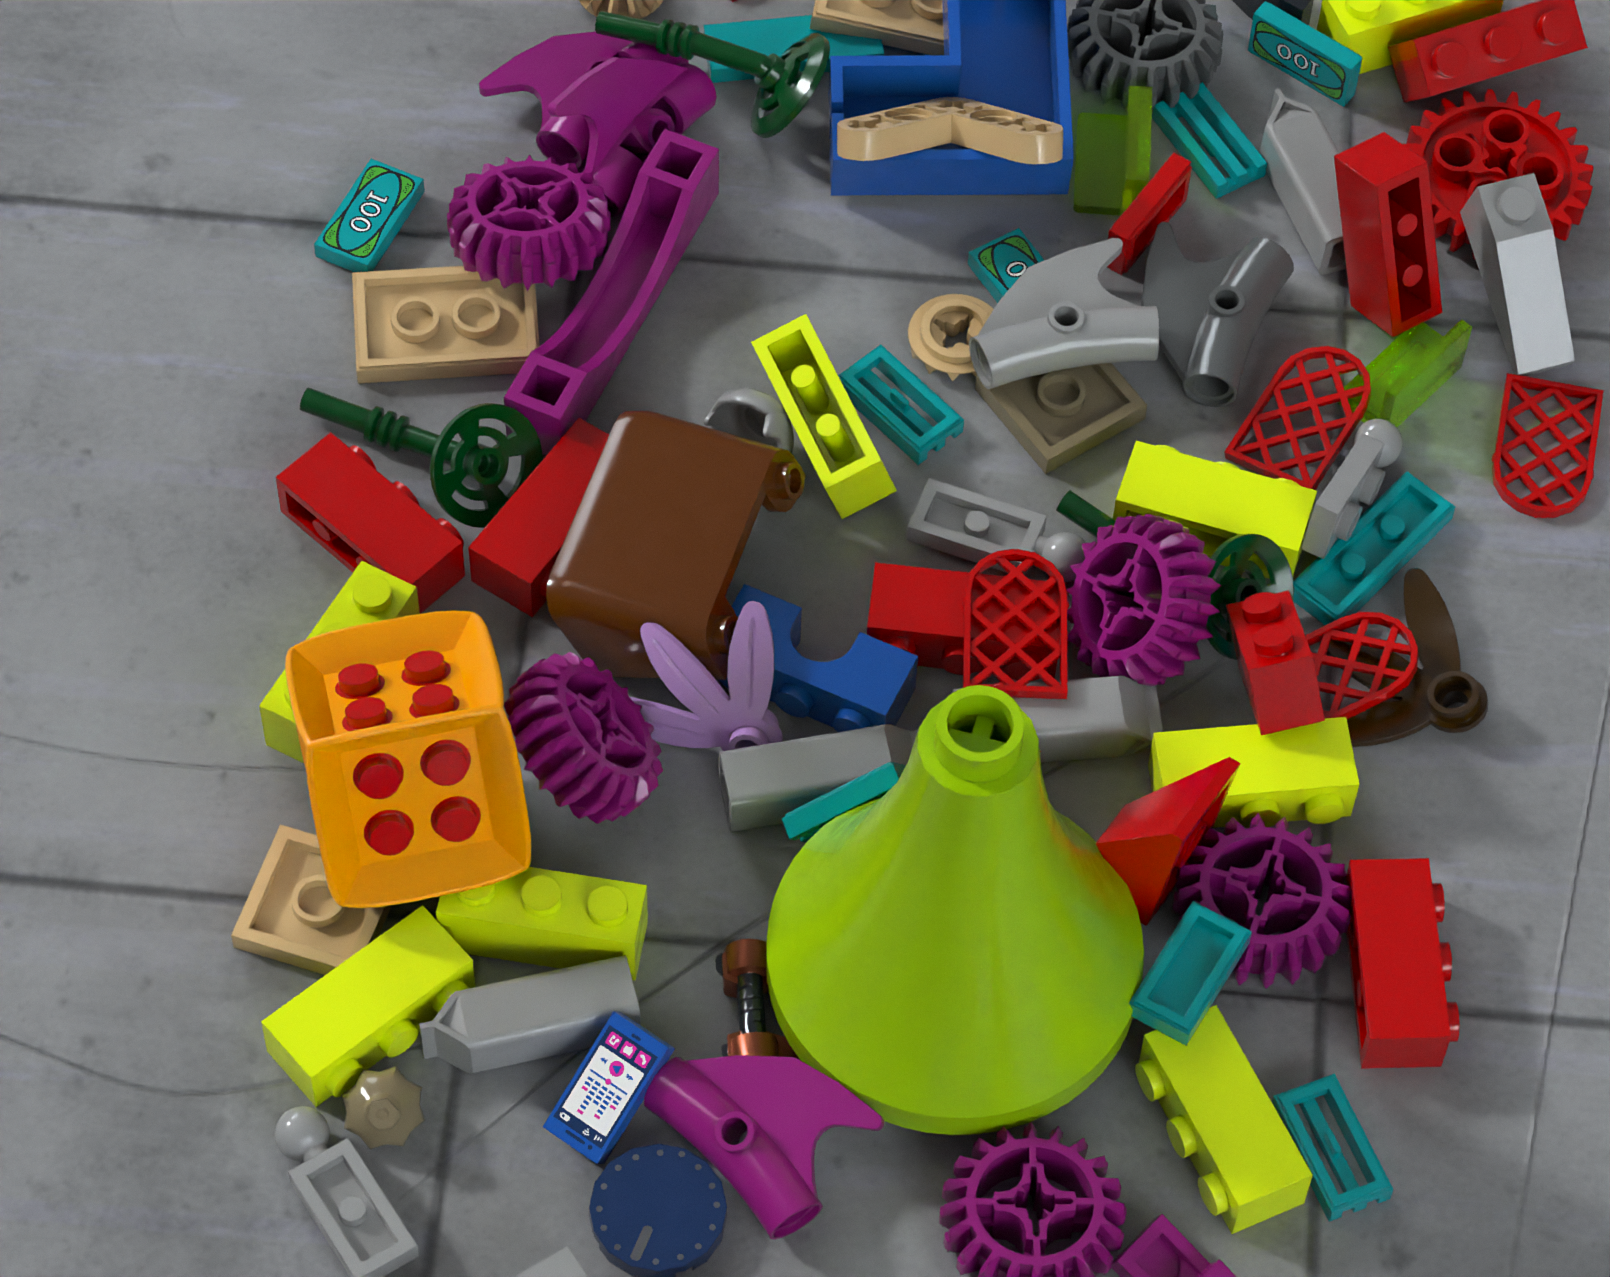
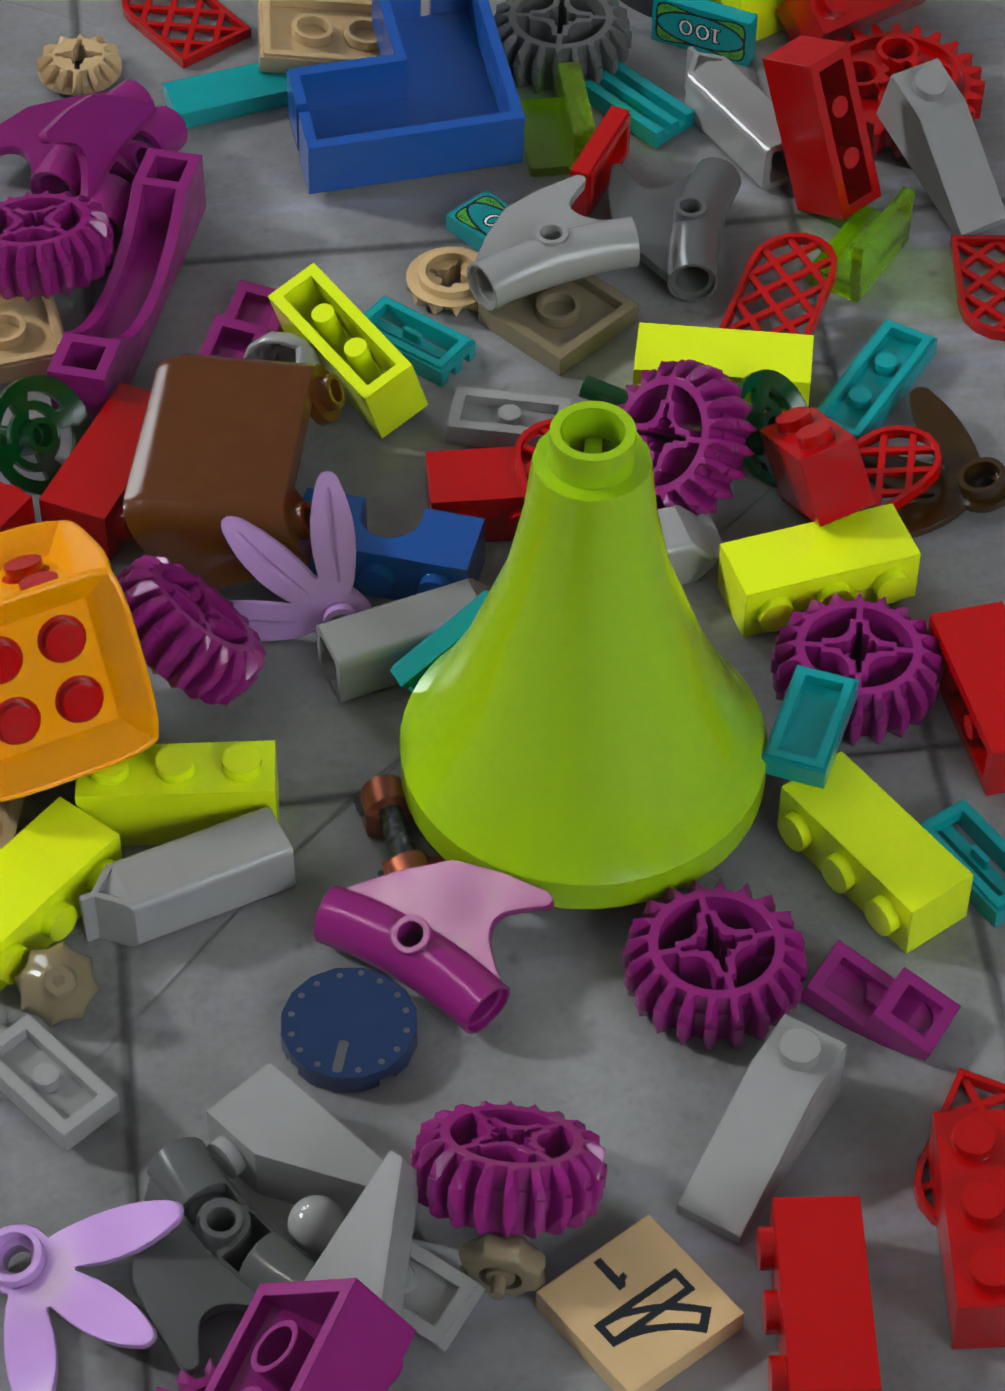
camera: 10 degrees left, 10 degrees down
(608, 1087) = (276, 924): tile -> none
(724, 361) = (245, 320): none -> magenta slope
(773, 74) = (245, 106): dark green dish -> none
(950, 121) = (411, 109): tan beam -> none
(1162, 830) = (754, 611): red slope -> none
(1356, 481) = (842, 333): light grey plate -> none

